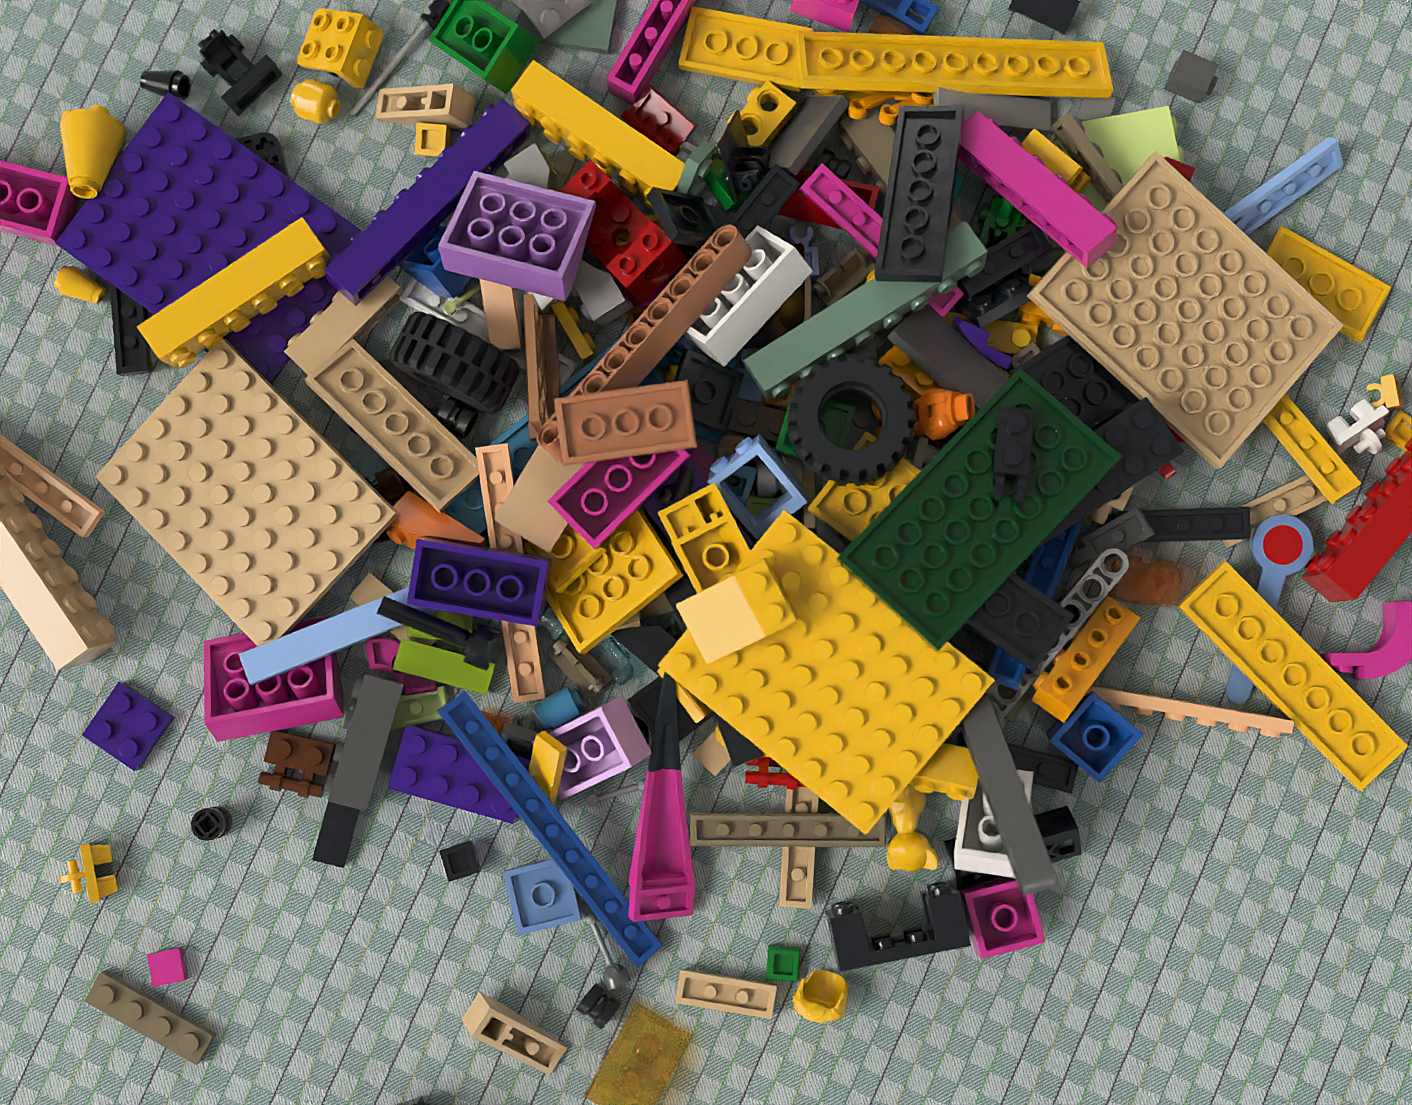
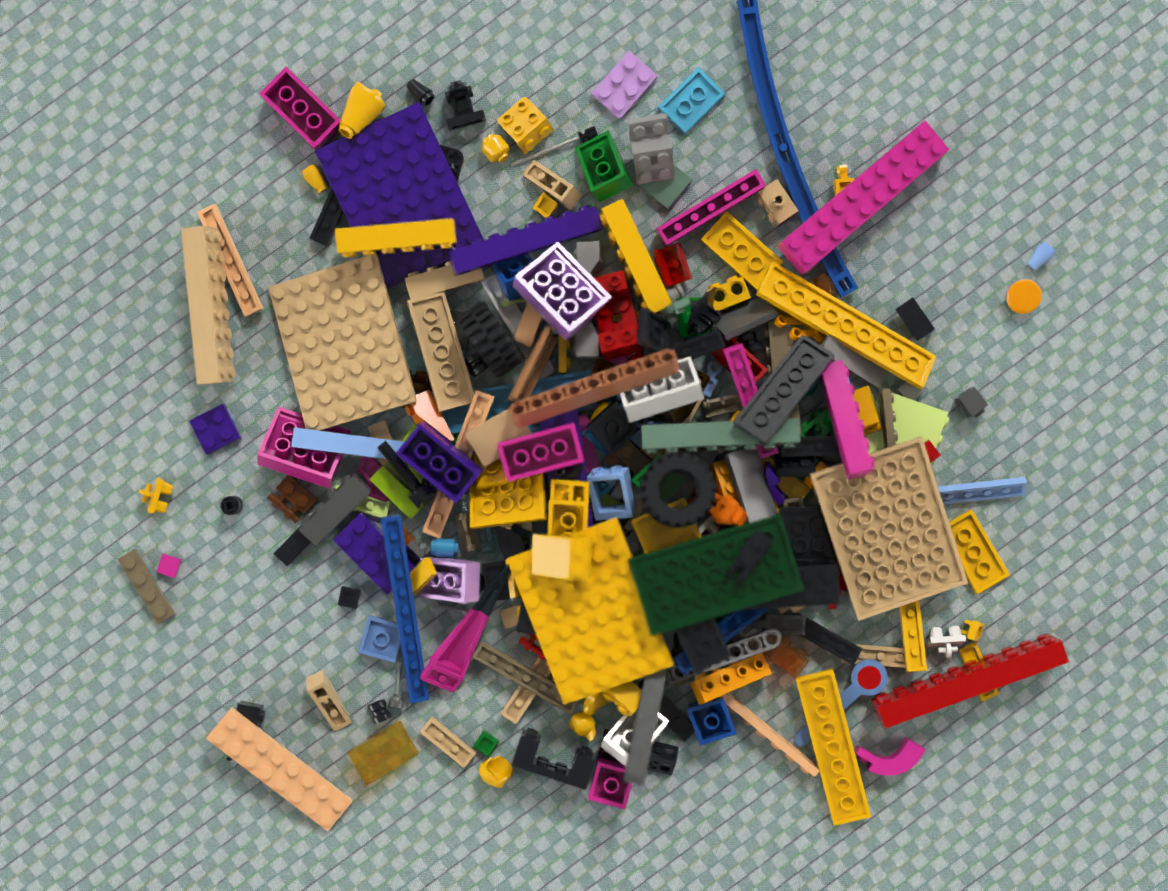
camera: 30 degrees right, 5 degrees up
(625, 423) = (559, 426): nougat tile -> none

